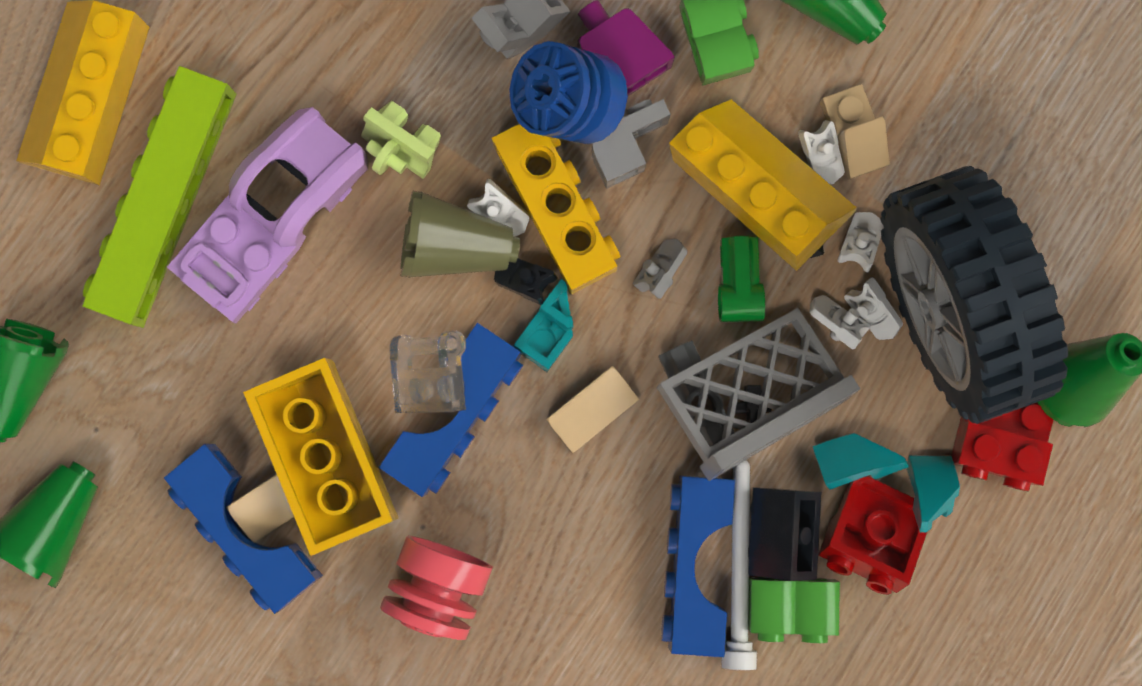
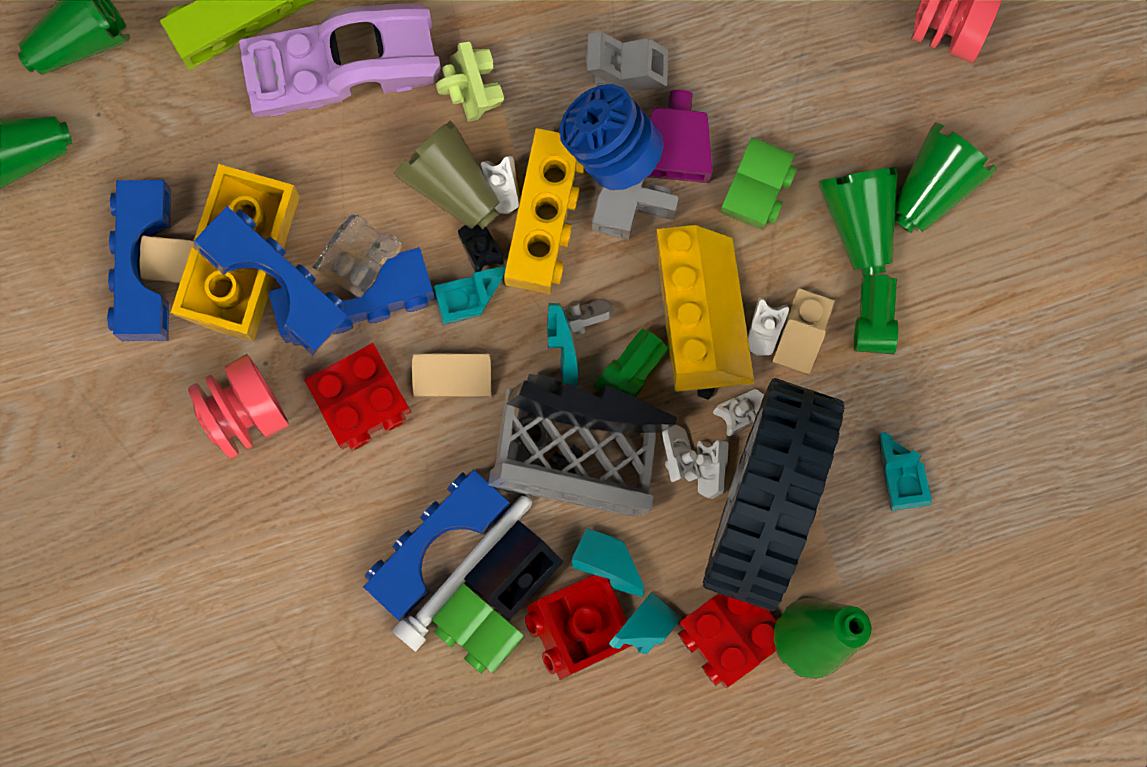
camera: 40 degrees right, 5 degrees down
(436, 459) = (233, 244): none -> blue arch
(528, 493) = (358, 398): none -> red plate
(664, 304) = (561, 336): none -> teal slope
(749, 338) = (604, 410): none -> black slope
(913, 77) = (876, 327): none -> green piece
(1036, 187) = (904, 475): none -> teal slope

